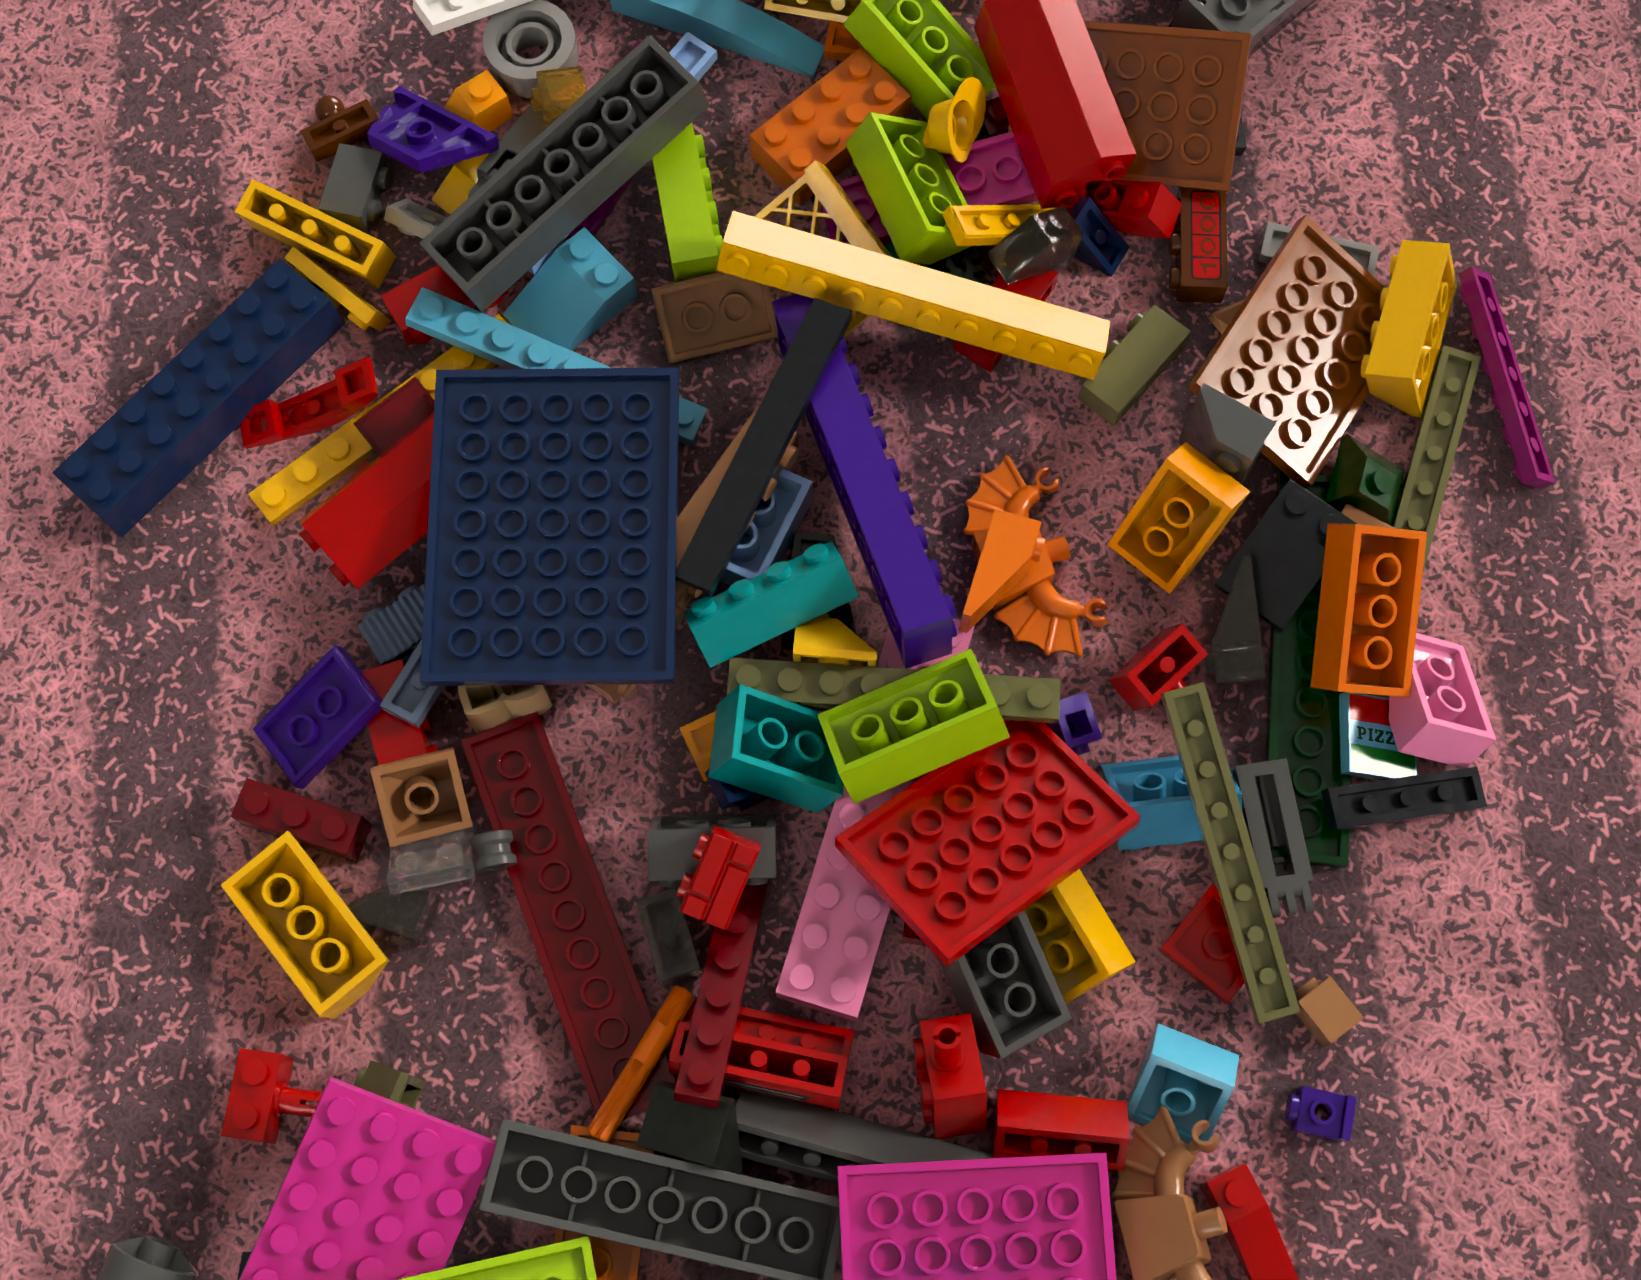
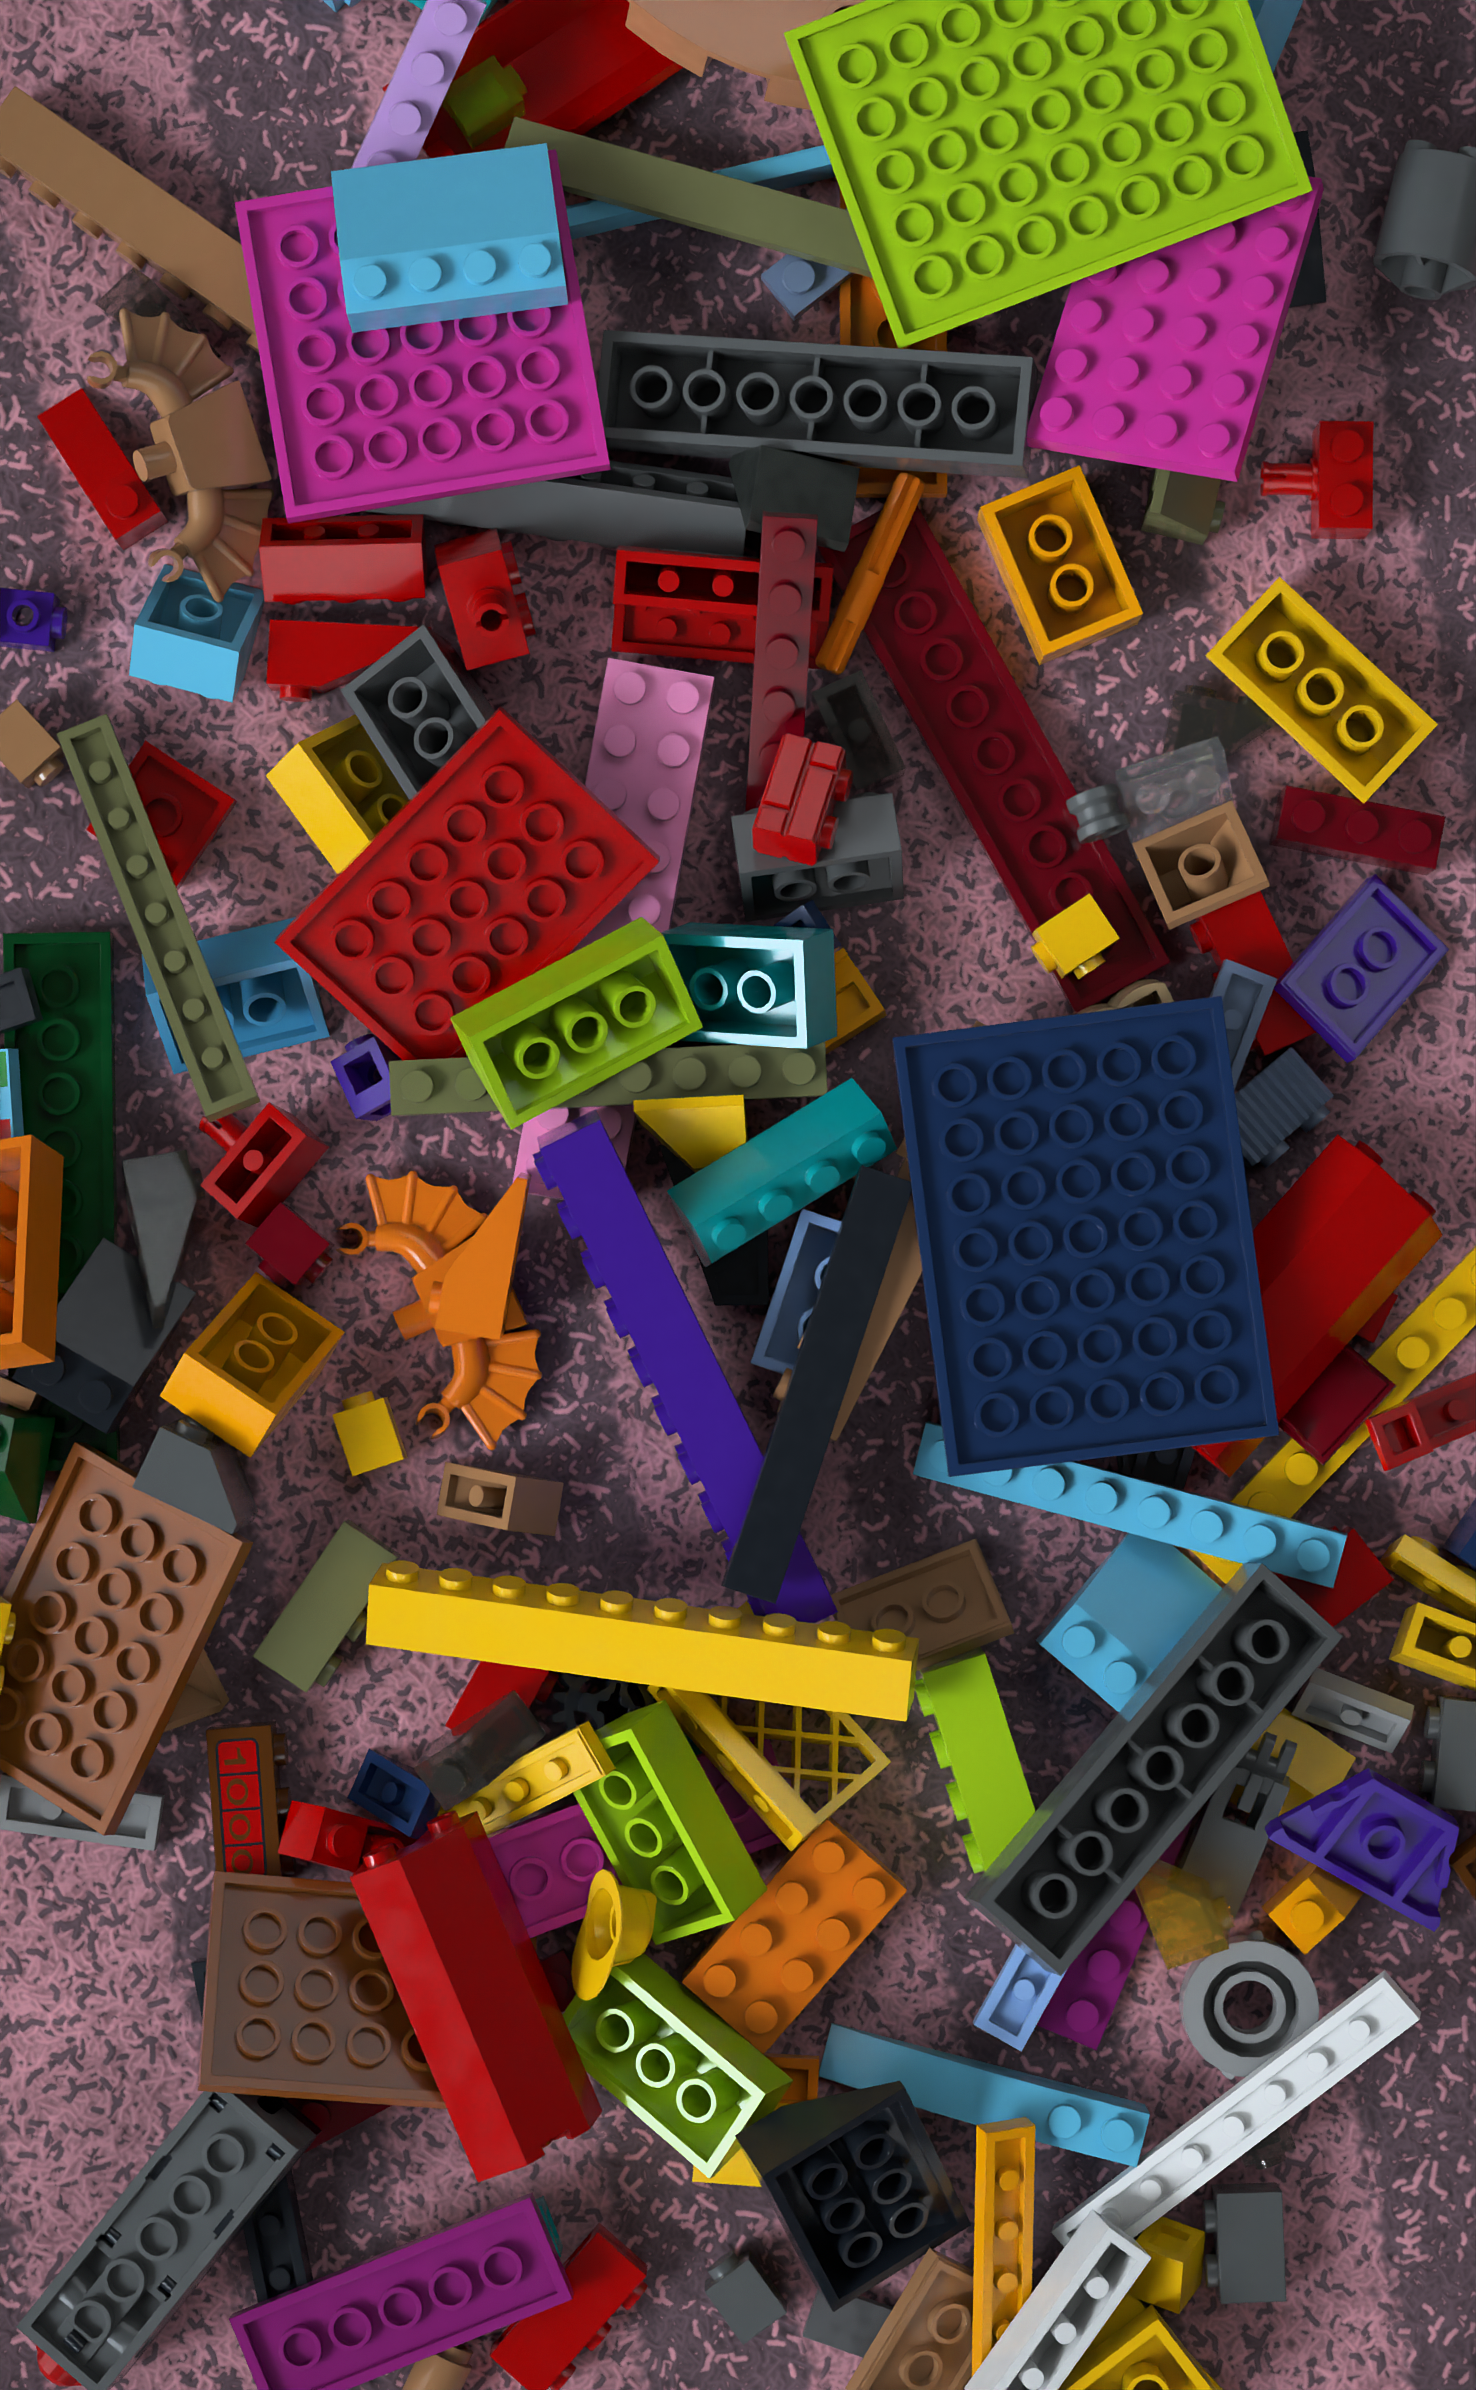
camera: 175 degrees right, 15 degrees up
(491, 1052) = (1059, 565): none -> light orange brick
(528, 758) = (1074, 939): none -> yellow brick
(1003, 420) = (500, 1499): none -> medium nougat slope
(1081, 1054) = (324, 655): none -> red slope
(1094, 475) = (368, 1433): none -> yellow brick
(1142, 608) = (290, 1247): none -> dark red brick
(1273, 823) = (105, 975): dark grey hinge -> none

